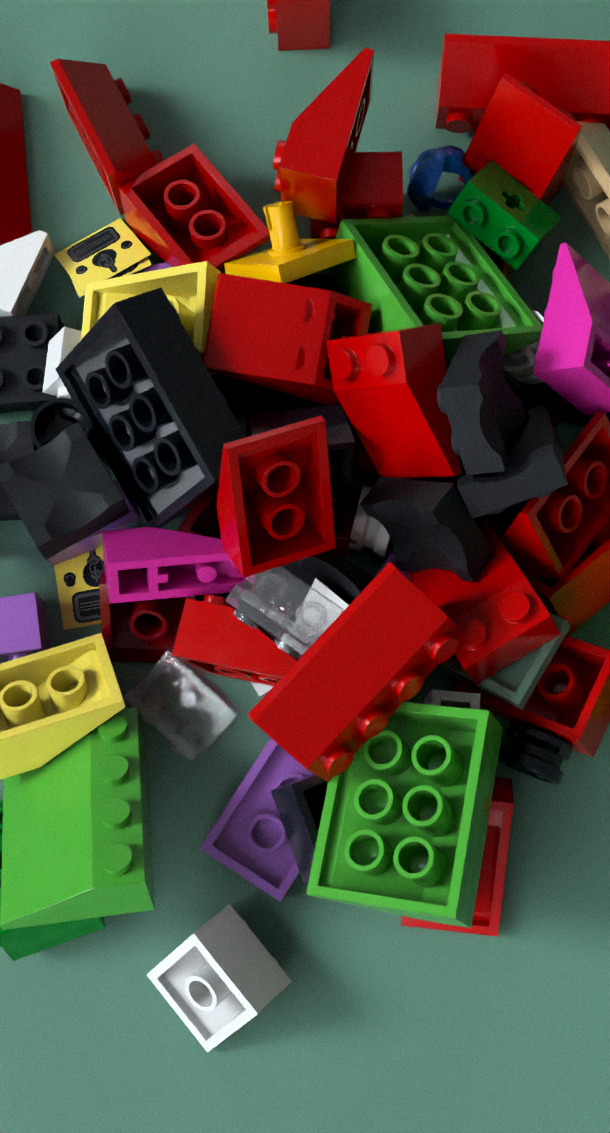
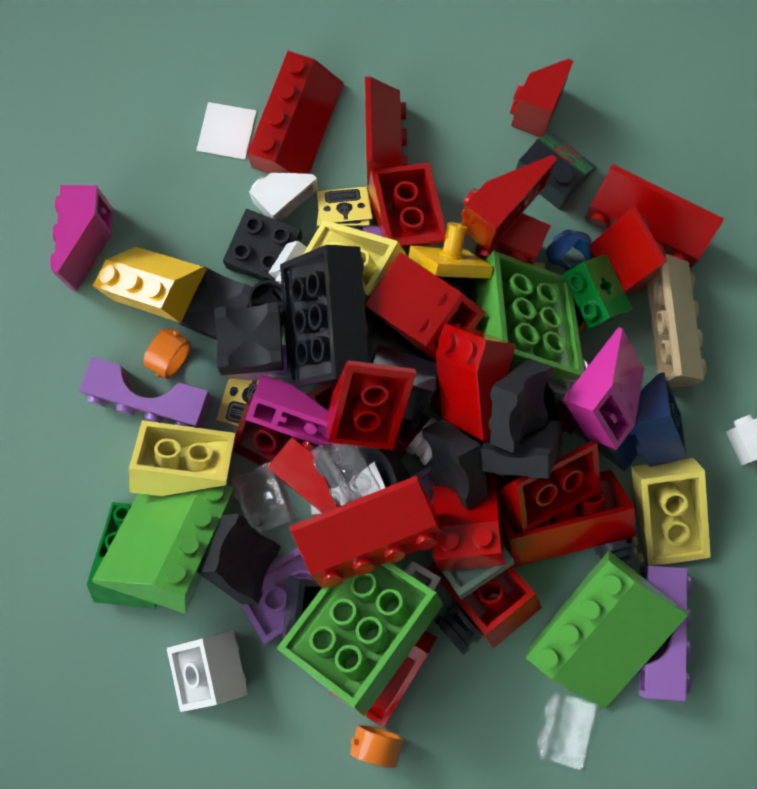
camera: 25 degrees right, 0 degrees up
(191, 800) = (238, 559): none -> black brick
(390, 81) = (569, 171): none -> black slope
(501, 964) = (376, 746): none -> orange piece

